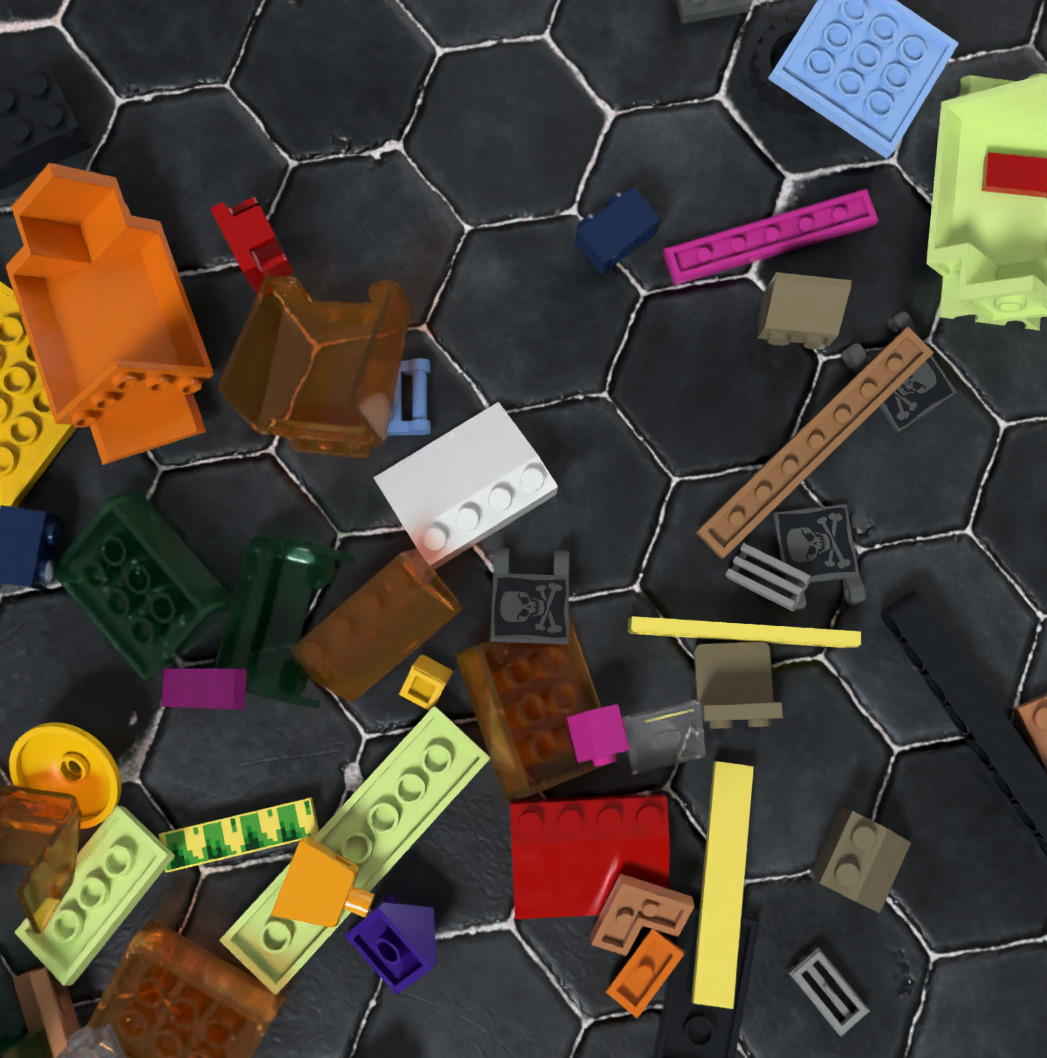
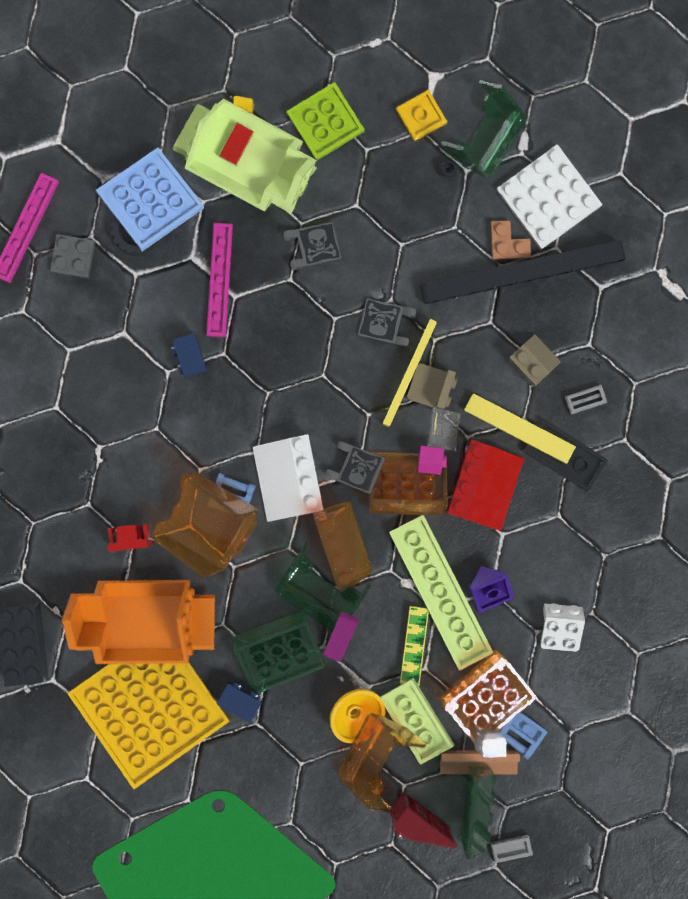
camera: 70 degrees left, 5 degrees up
(320, 887) = (453, 613): light orange torso -> none
(426, 682) = (376, 532): yellow slope -> none
(635, 905) = (514, 473): nougat plate -> none
(645, 972) = (546, 480): orange plate -> none
(740, 562) = (376, 360): light grey tile -> none
(802, 310) = (266, 282): dark tan slope -> none
(814, 442) = (331, 302): medium nougat plate -> none

